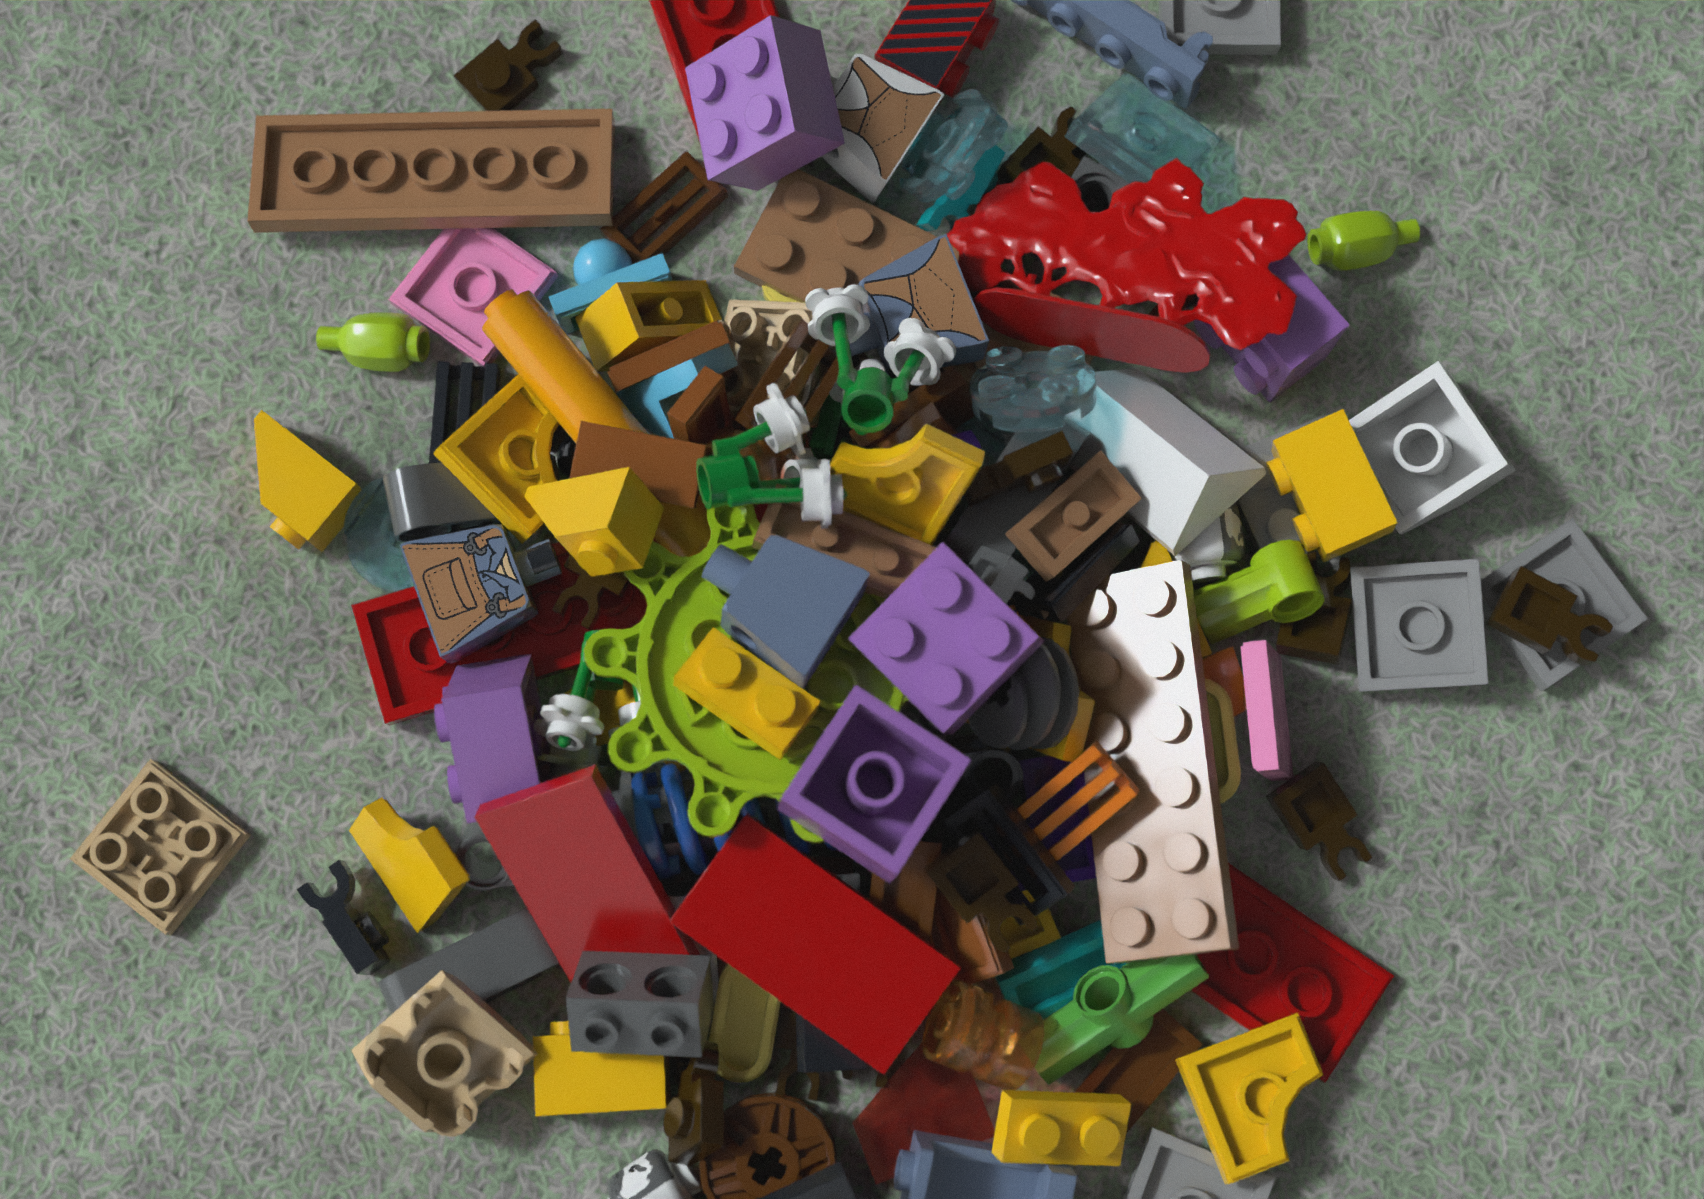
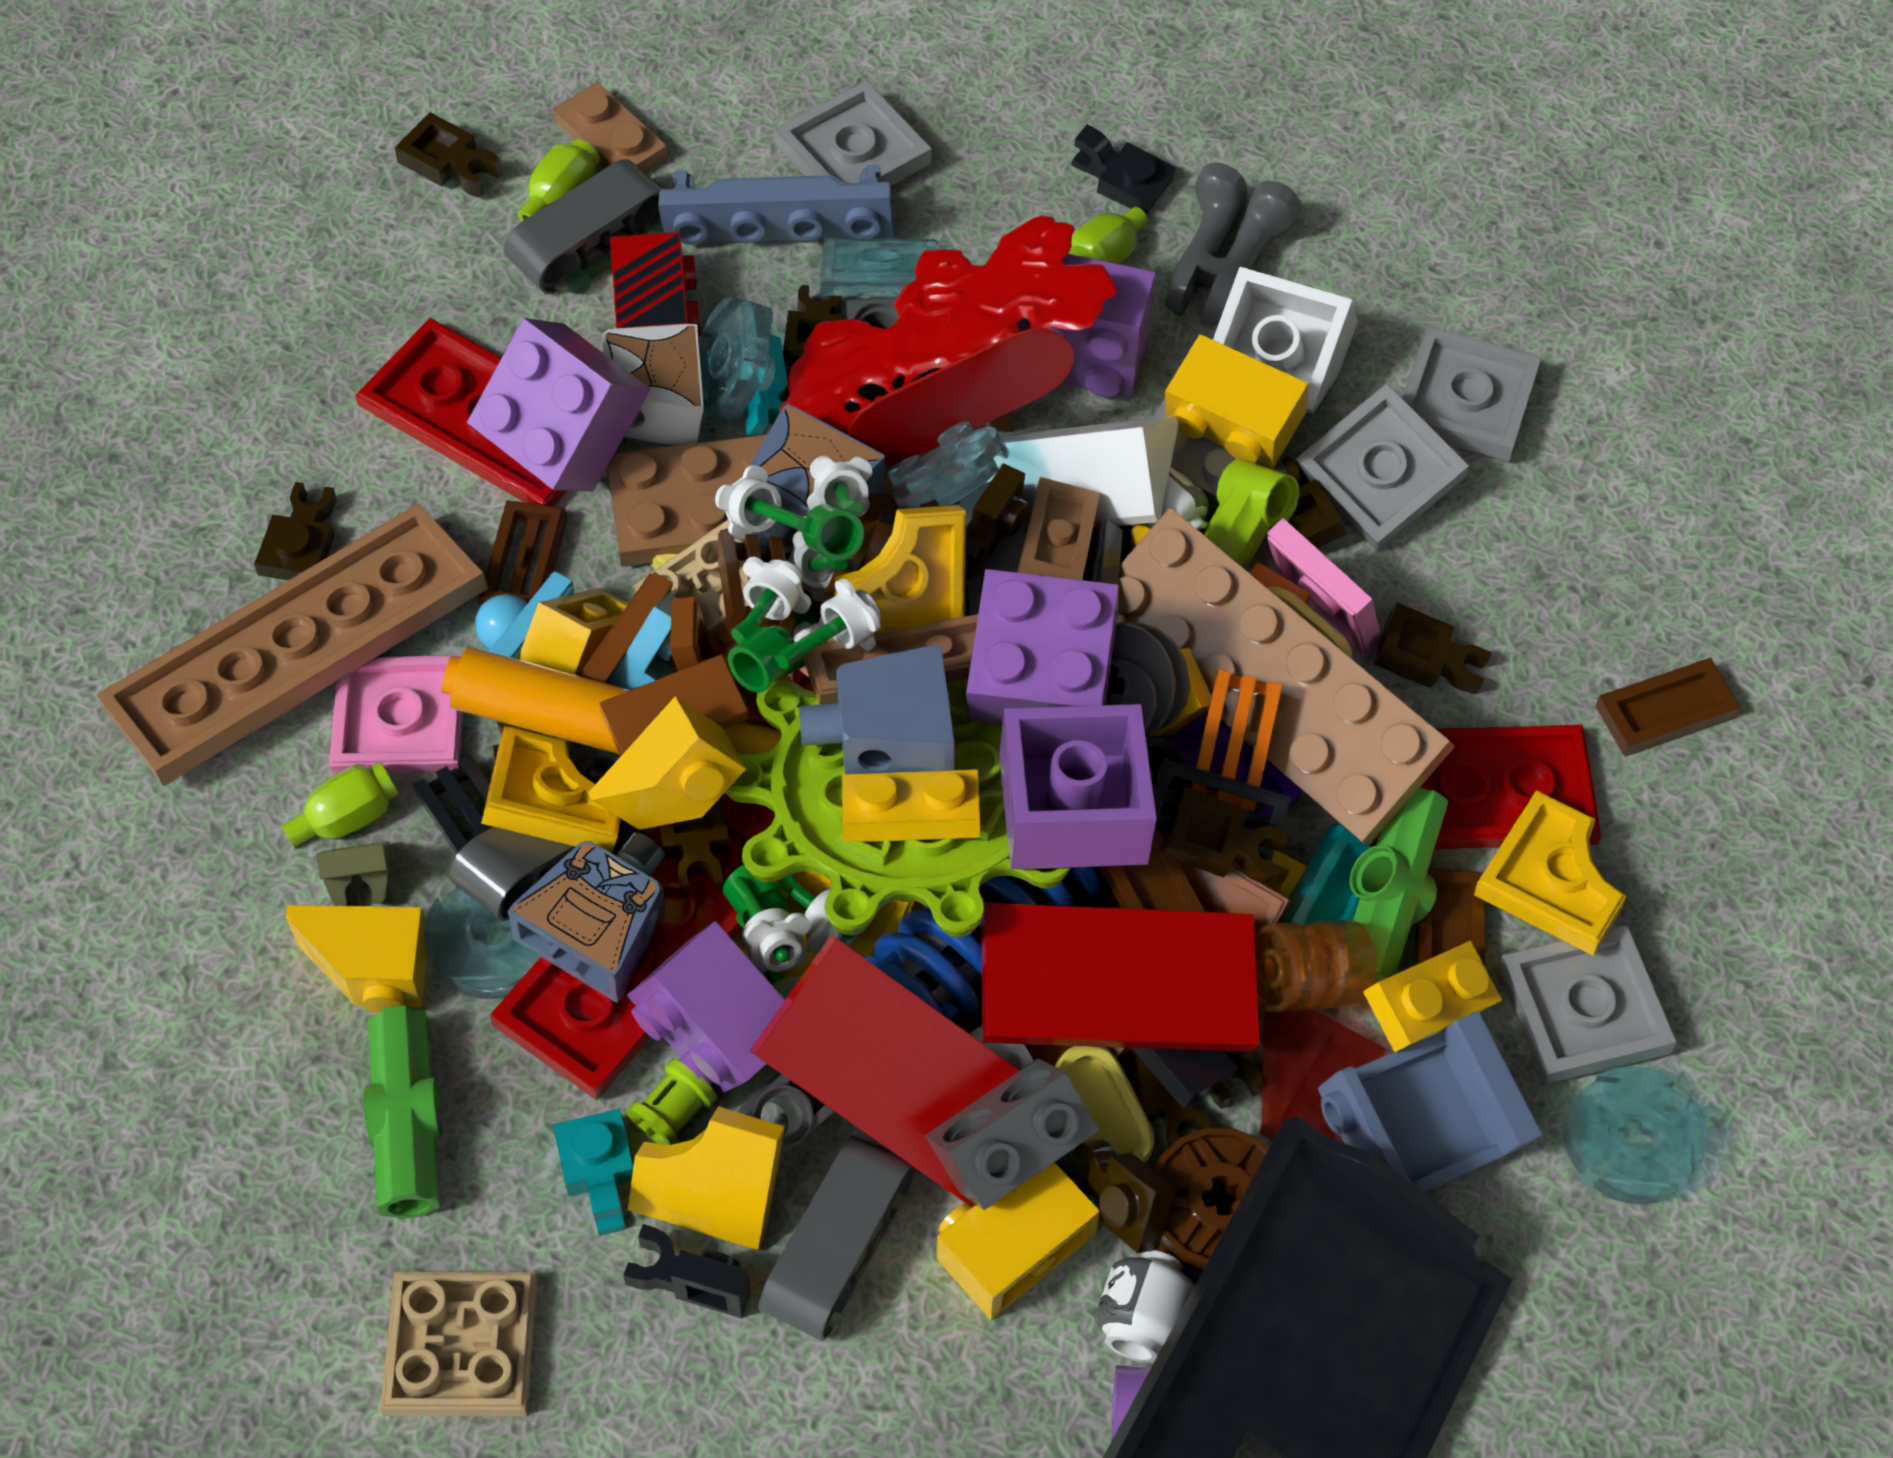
camera: 40 degrees left, 20 degrees down
(240, 636) = (402, 1113): none -> bright green piece
(346, 400) = (341, 864): none -> olive tile
(353, 774) = (594, 1161): none -> teal plate
(423, 776) = (671, 1104): none -> lime bush
(442, 1056) = (870, 1304): tan slope -> none
(1438, 185) = (1124, 176): none -> black plate
(1482, 1010) = (1667, 707): none -> reddish brown tile
(1493, 269) = (1222, 198): none -> dark grey piece
(1540, 614) = (1465, 397): dark brown plate -> none

